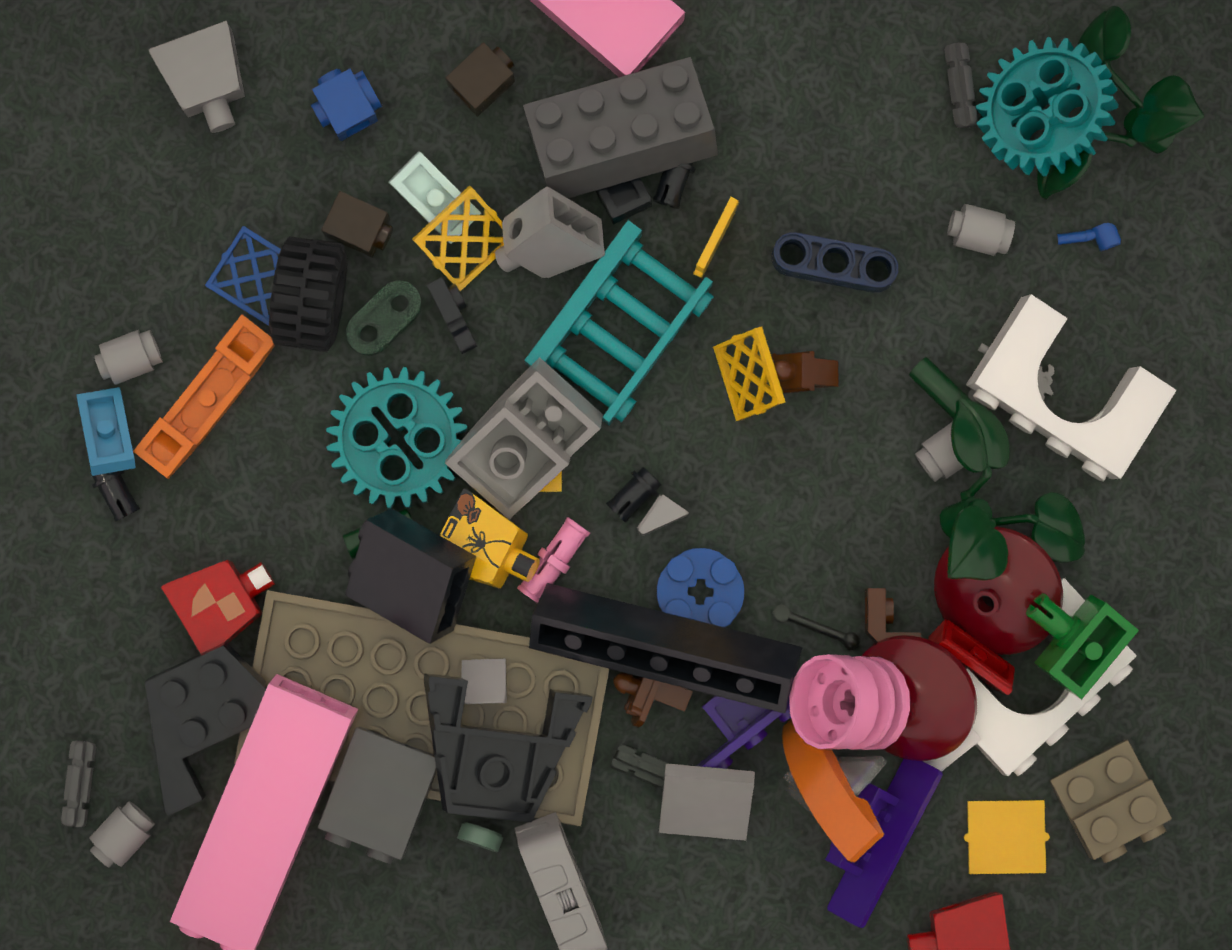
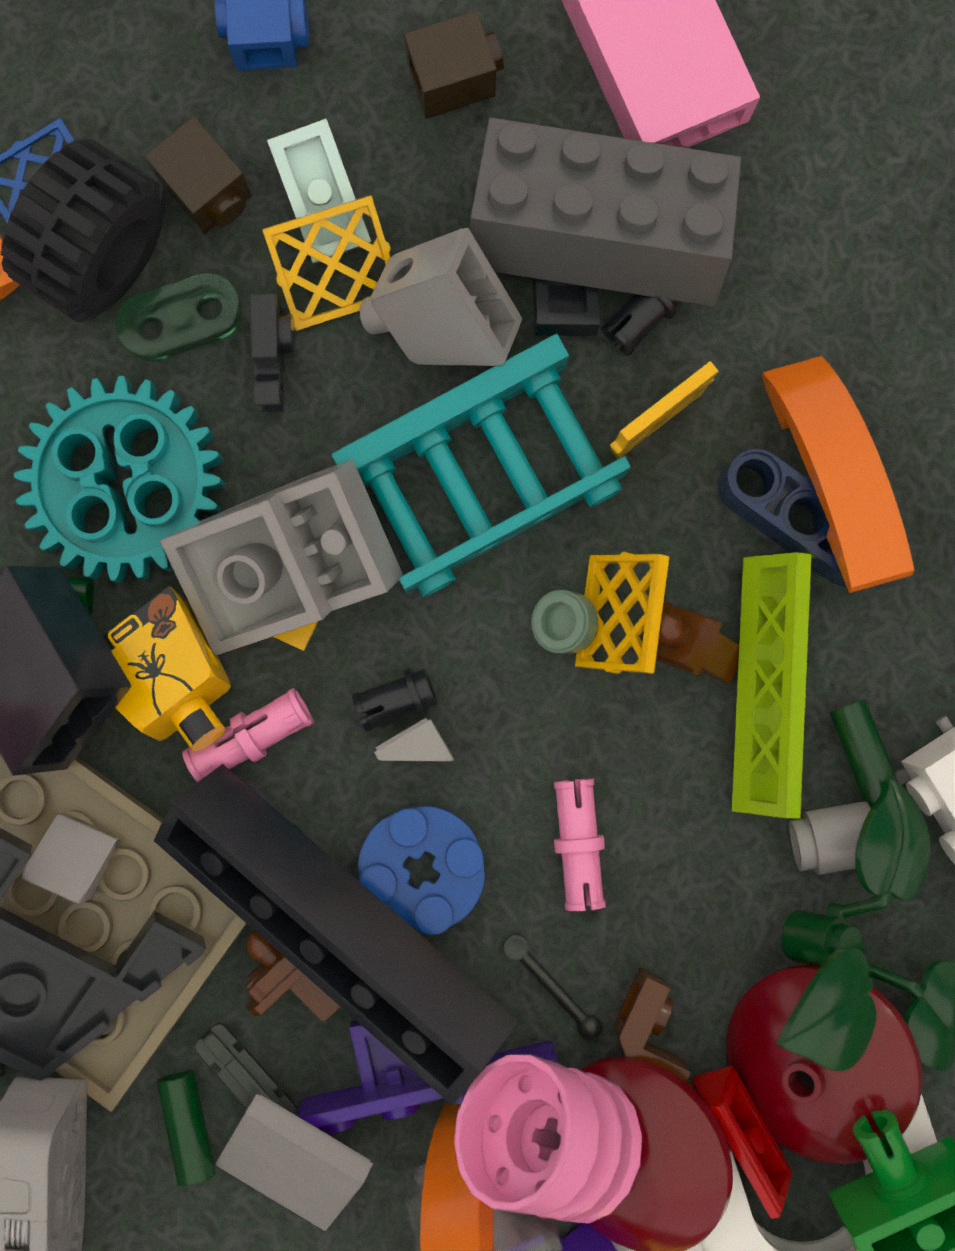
camera: 20 degrees right, 0 degrees up
(630, 817) = (186, 1128): none -> dark green hinge
(716, 396) = (564, 622): none -> sand green tile
(790, 529) = (579, 844): none -> bright pink pin
(842, 222) = (844, 470): none -> orange slope
(862, 375) = (771, 685): none -> lime fence

